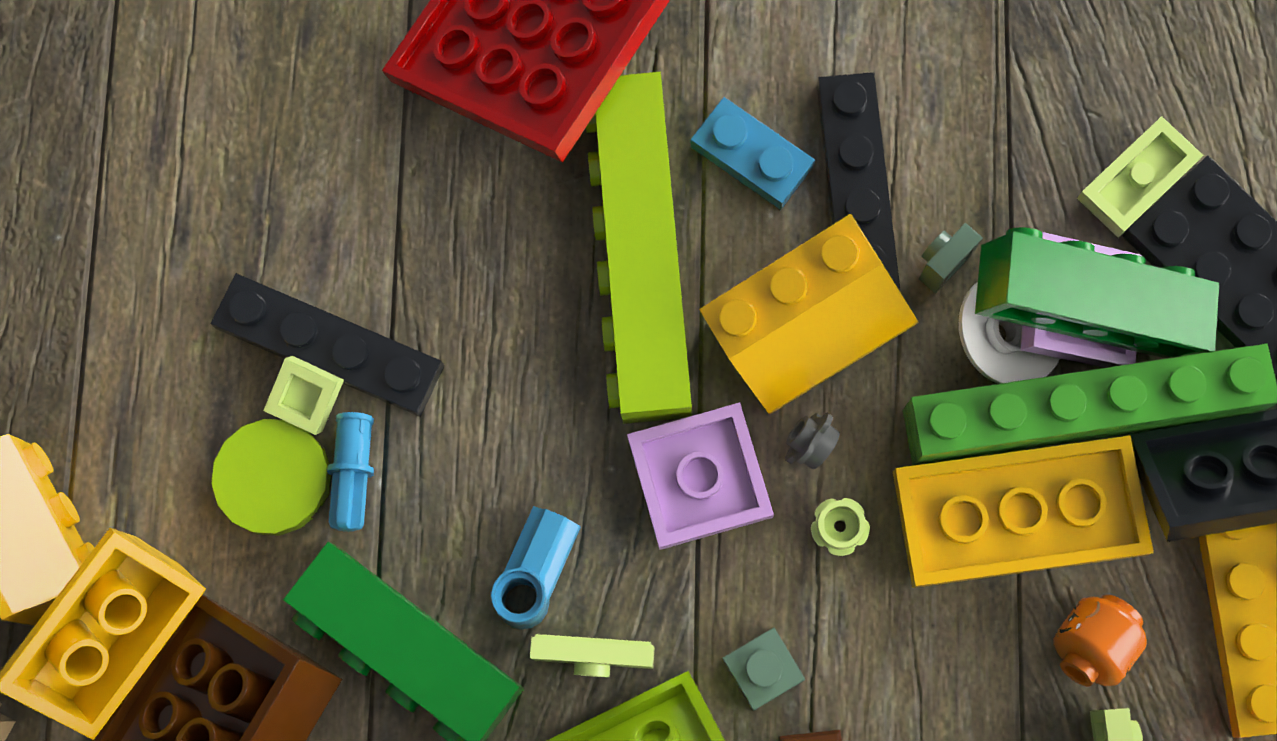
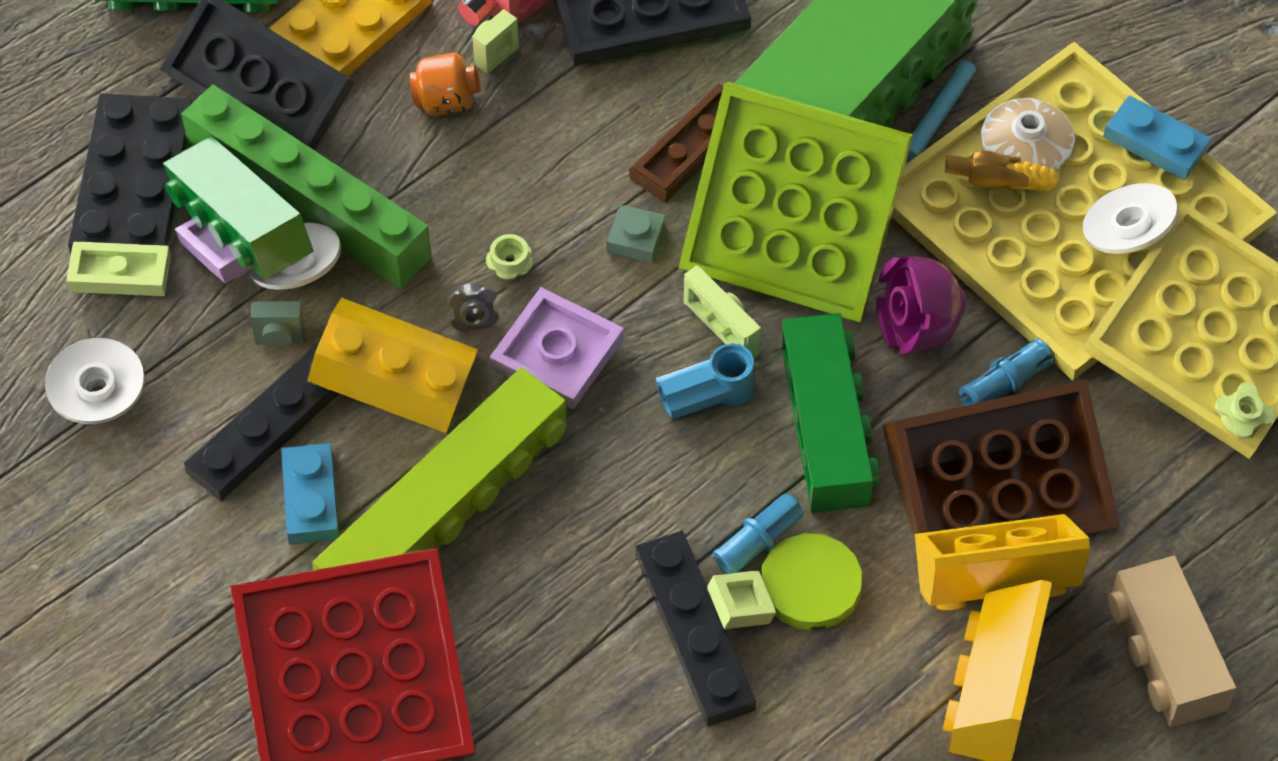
camera: 140 degrees left, 20 degrees down
(1022, 511) = (413, 173): yellow plate -> none
(1032, 39) = (92, 365): none -> white dish

